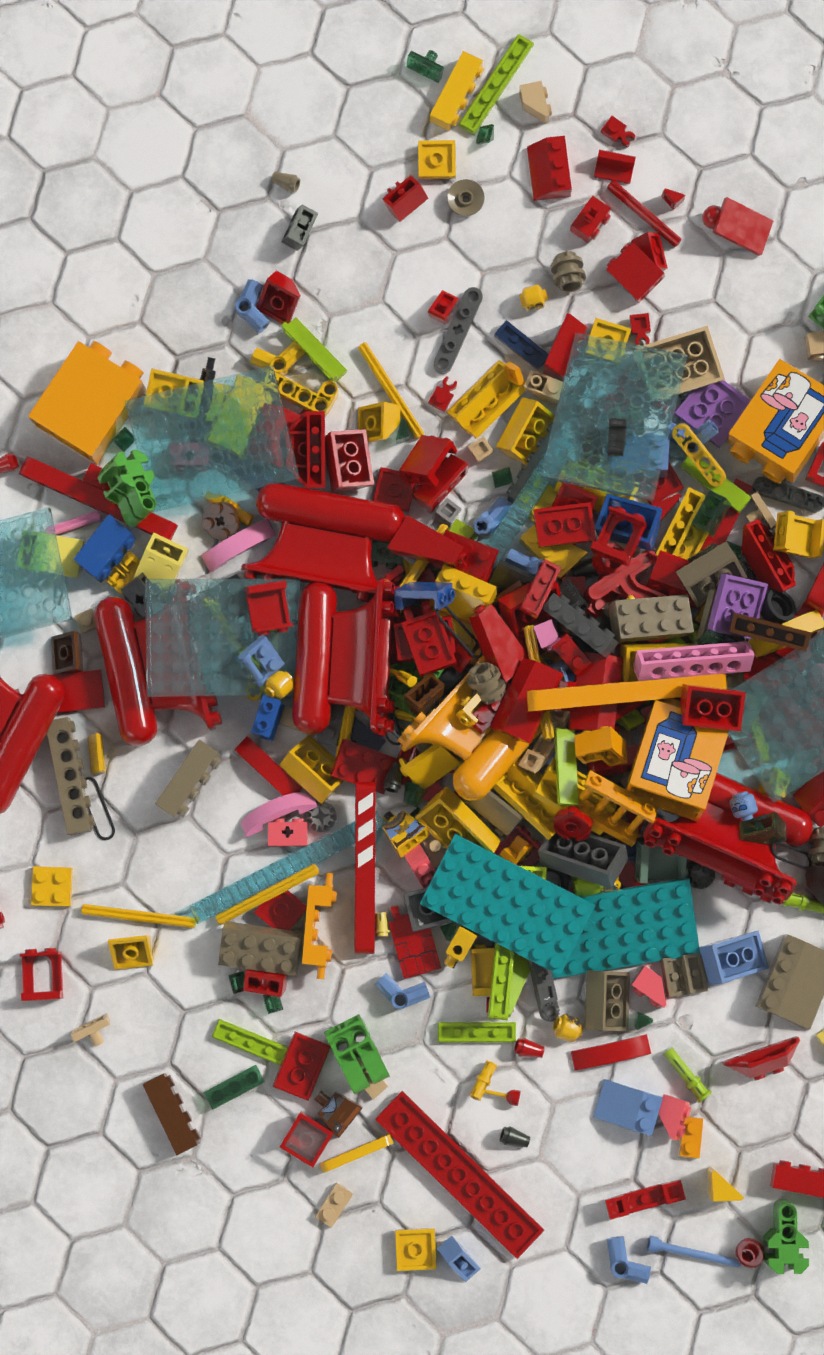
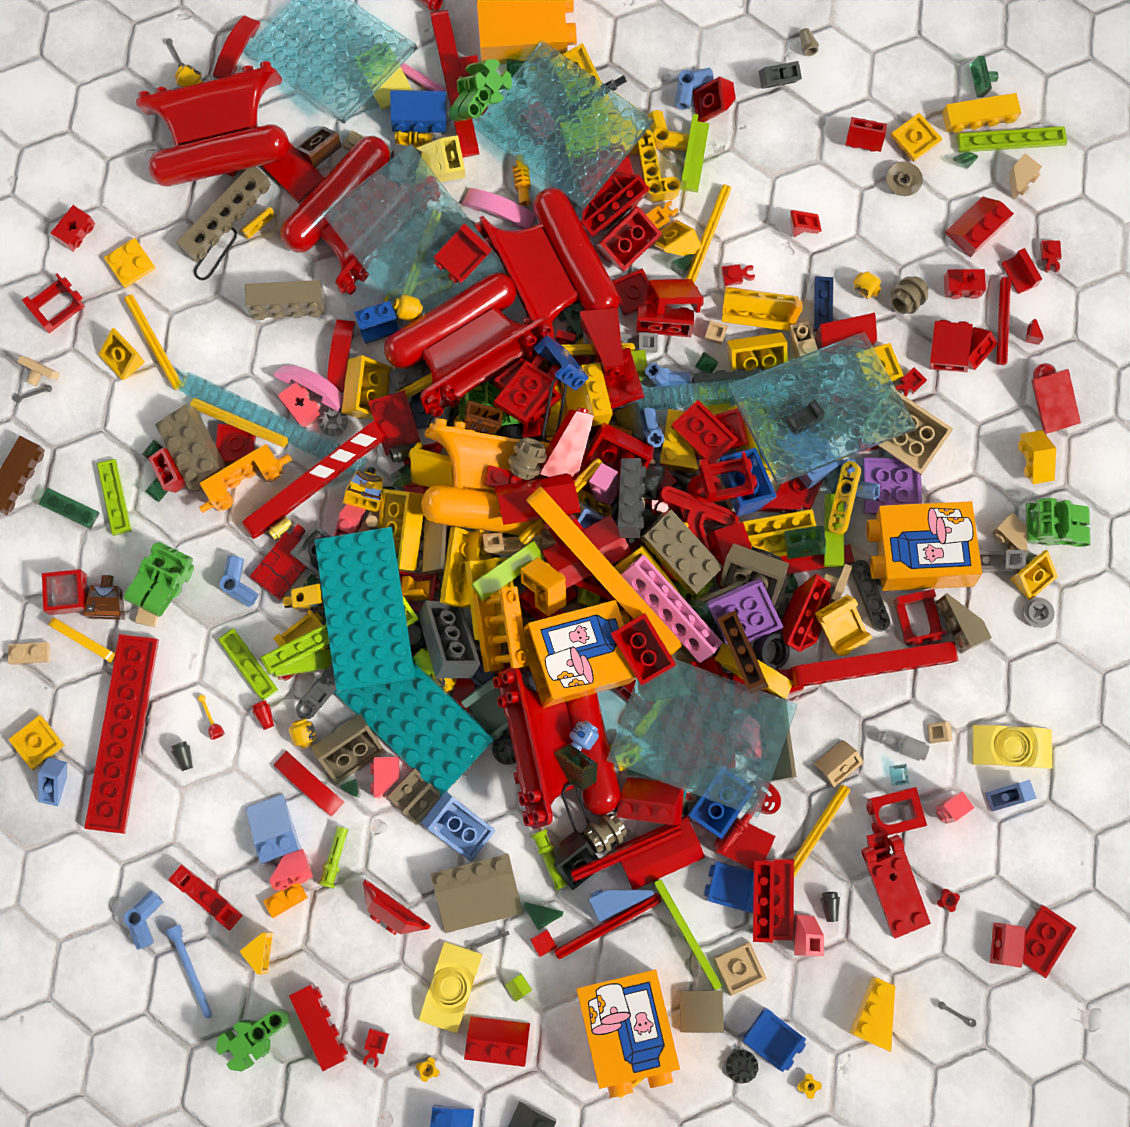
camera: 45 degrees right, 5 degrees down
(103, 1063) = (48, 388): none -> dark grey hinge
(213, 527) = (499, 176): reddish brown plate -> none
(265, 655) = (422, 278): medium blue plate -> none
(301, 1066) = (121, 547): red tile -> none
(346, 420) = (660, 216): none -> light orange plate
(404, 677) = (484, 395): yellow axle -> none
(463, 318) = (808, 247): dark grey piece -> none
(464, 714) = (497, 457): yellow bracket -> none
(483, 1080) = (211, 696): yellow pin -> none
(540, 588) = (636, 446): red tile -> none
(571, 653) = (602, 507): red plate -> none
(580, 822) = (466, 609): red plate -> none
(750, 1253) = (222, 1017): plate -> none
(777, 275) = (1039, 456): none -> yellow brick

